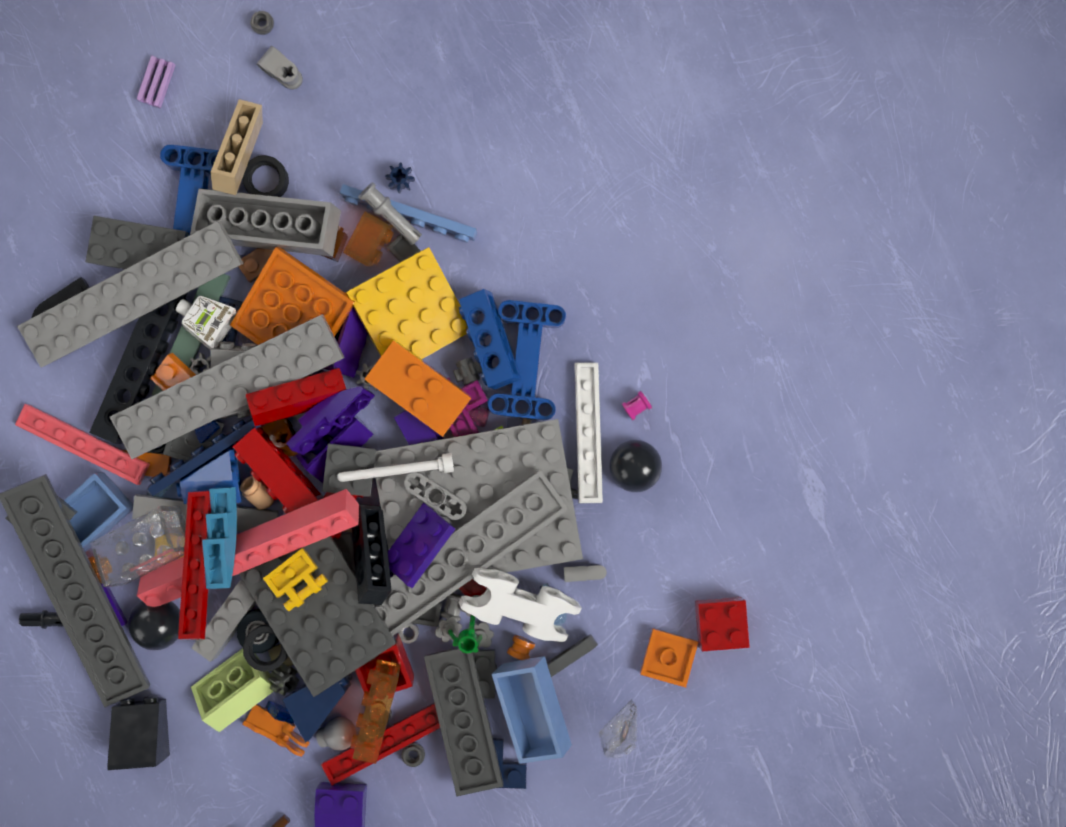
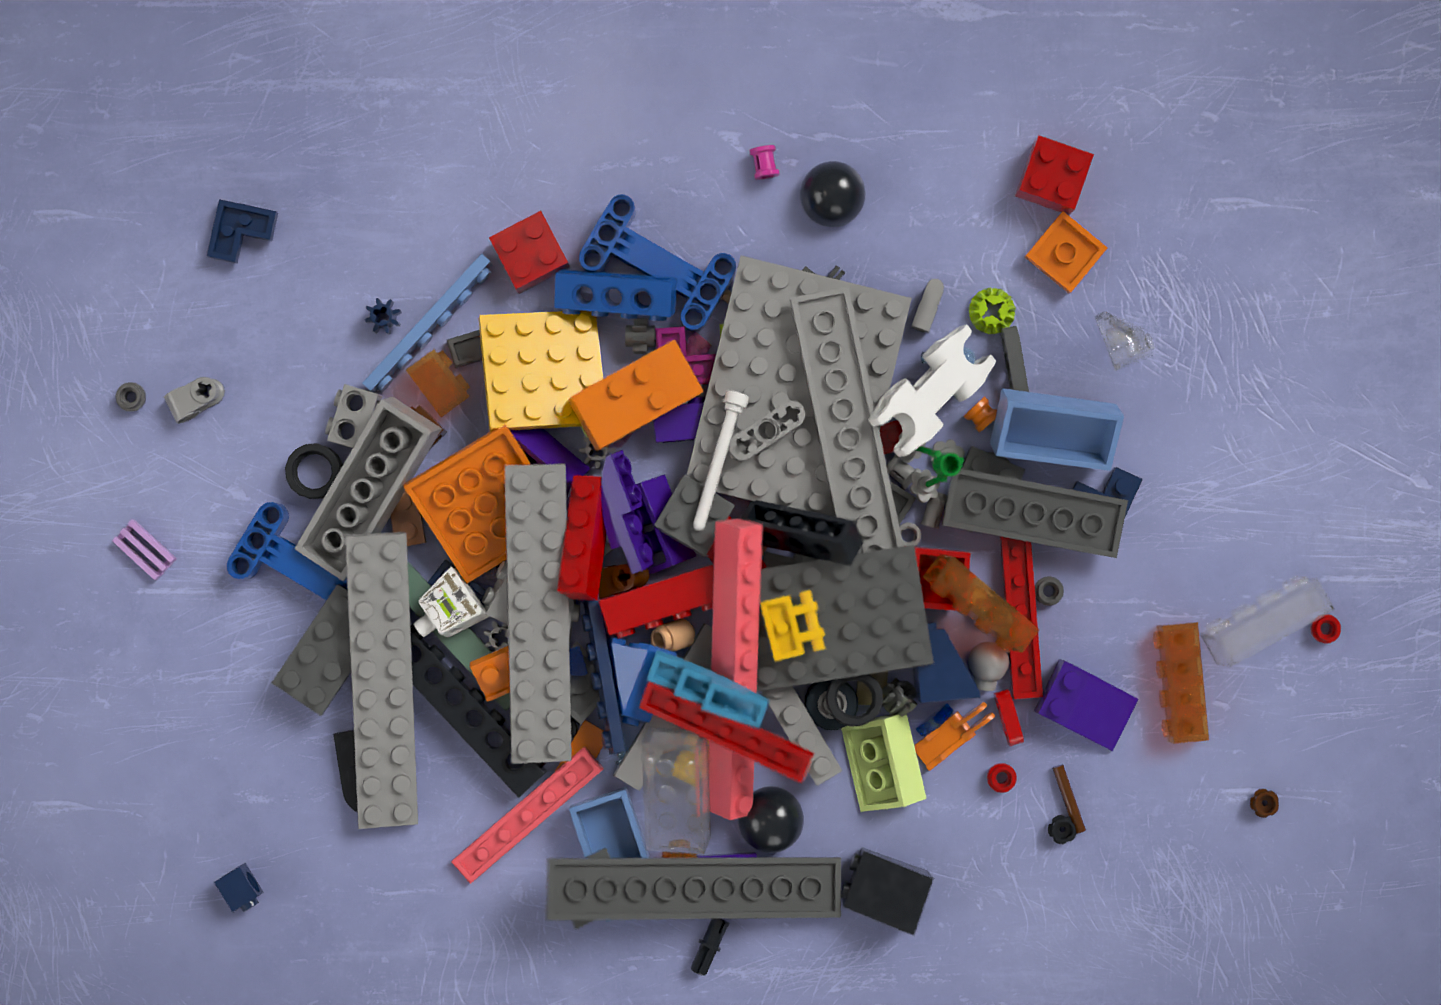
camera: 65 degrees left, 0 degrees up
(237, 147) = (266, 483): tan brick -> none
(255, 785) = (1009, 782): none -> red plate
(306, 766) = (1008, 717): none -> red beam
(316, 184) = (345, 415): none -> light grey brick
(382, 206) = (410, 347): light grey pin -> none
(417, 39) = (233, 223): none -> dark blue plate
(418, 544) = (814, 470): dark purple plate -> none
(434, 644) = (934, 511): none -> light grey pin
(493, 263) = (529, 252): none -> red brick
(588, 433) = (771, 230): white tile -> none
(599, 610) = (990, 324): none -> lime gear

